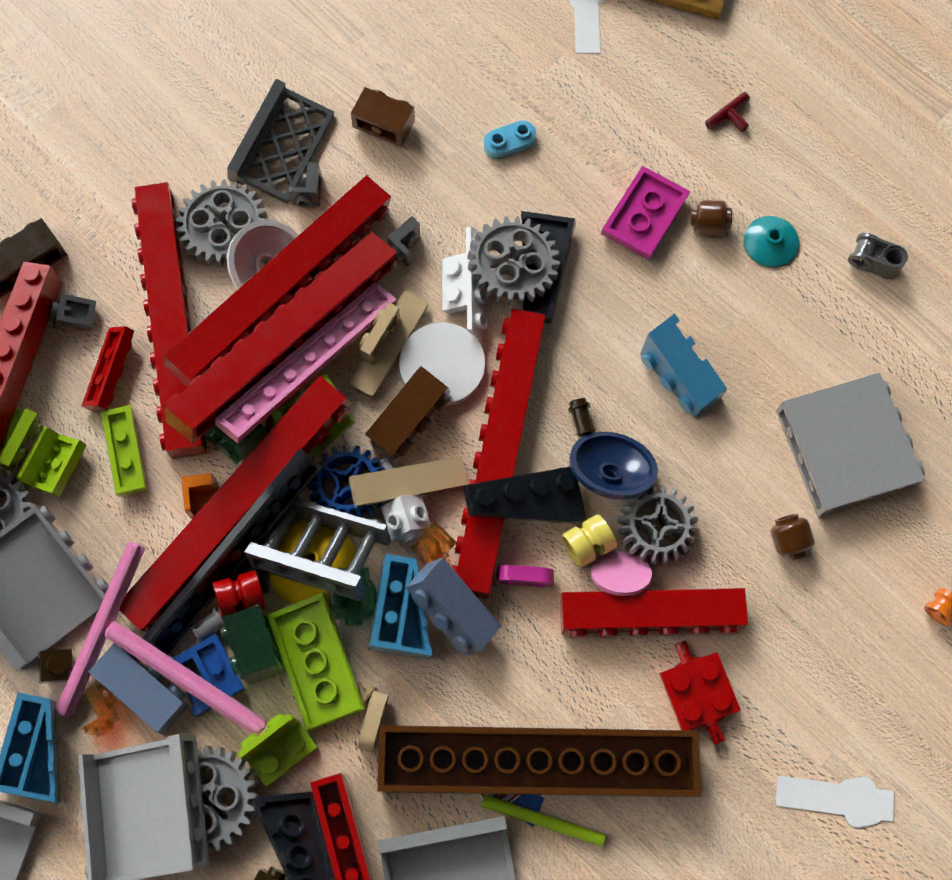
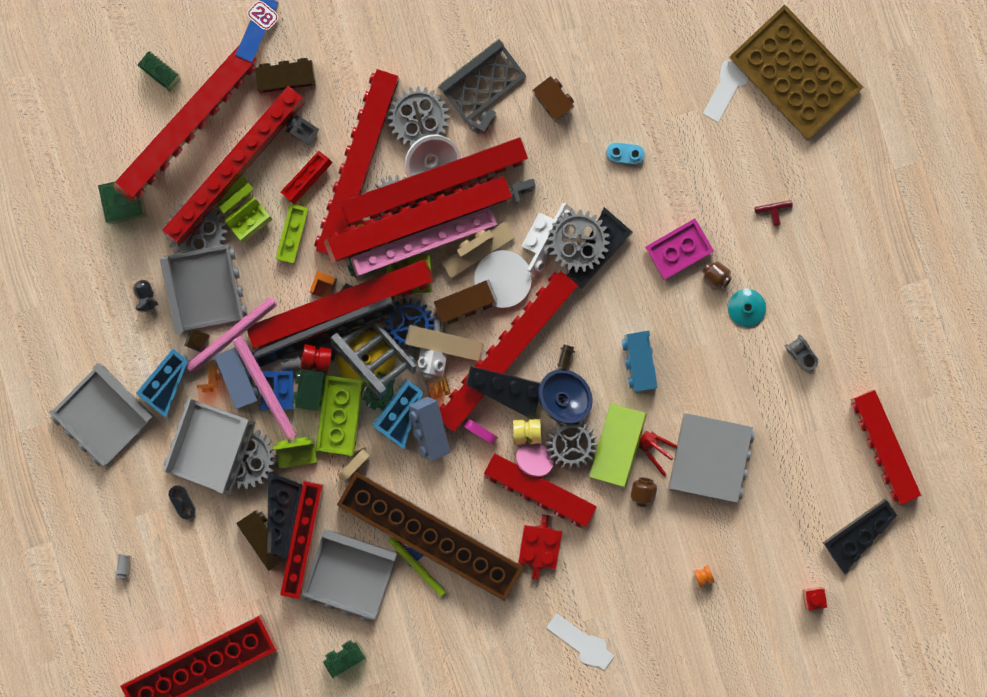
camera: 30 degrees right, 15 degrees up
(720, 493) = (618, 445): none -> lime tile
(756, 466) = (648, 441): none -> red plant

